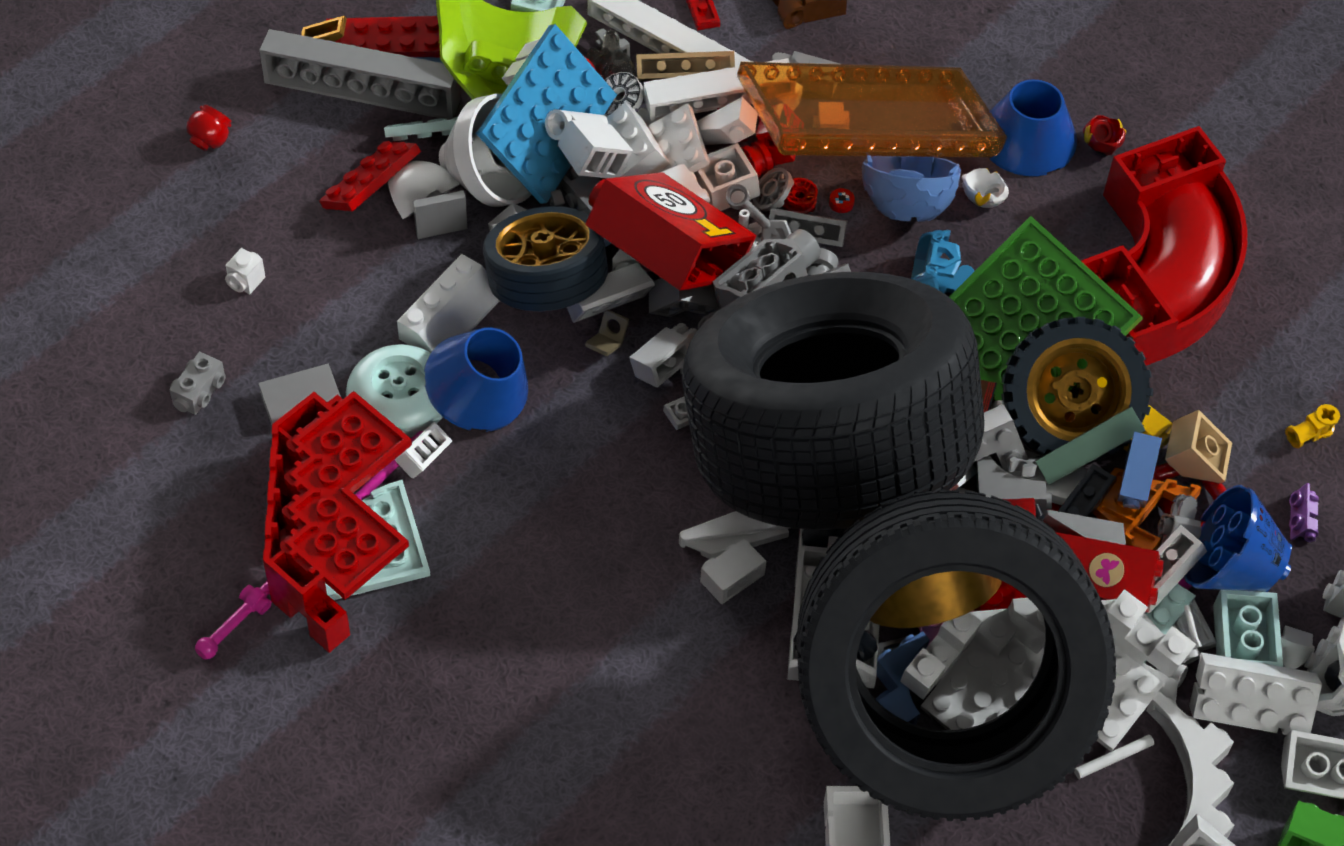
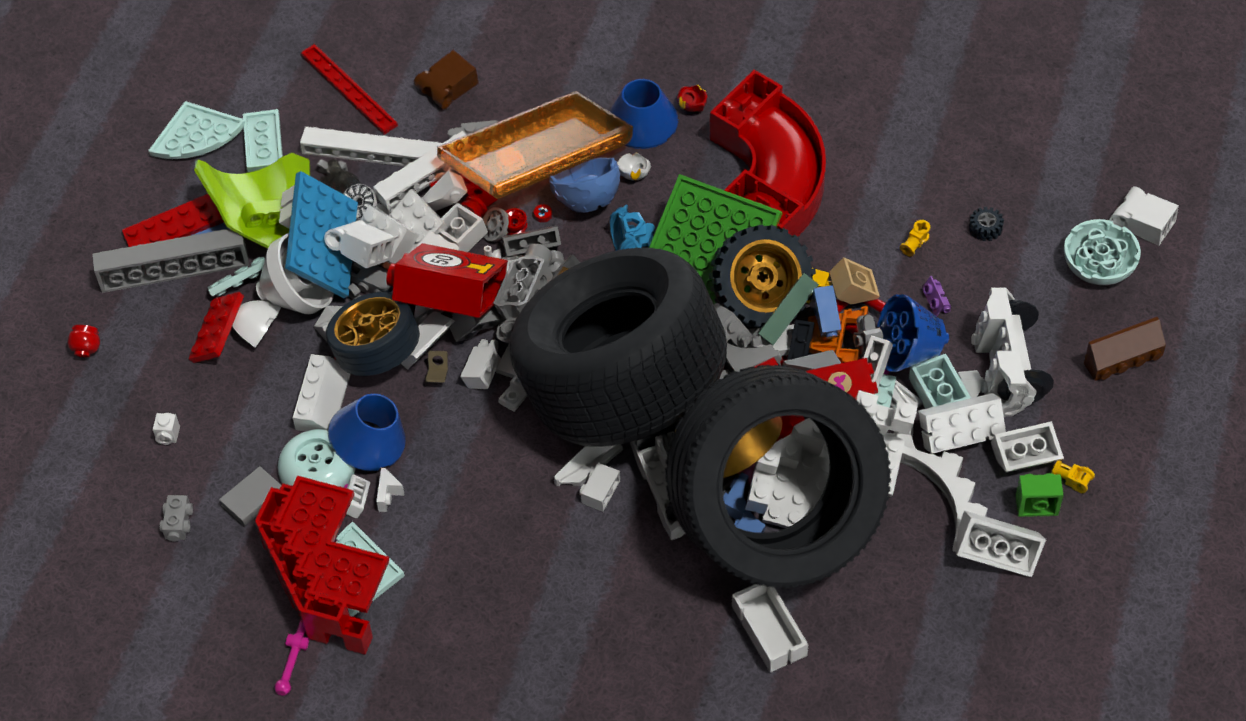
camera: 20 degrees left, 0 degrees up
(327, 29) = (125, 239): pearl gold slope -> none
(440, 214) = (281, 333): light grey tile -> none
(465, 456) = (387, 487): none -> white slope
(671, 65) = (390, 163): tan slope -> none
(770, 228) = (510, 252): light grey piece -> none
(1114, 756) = (898, 494): white bar -> none

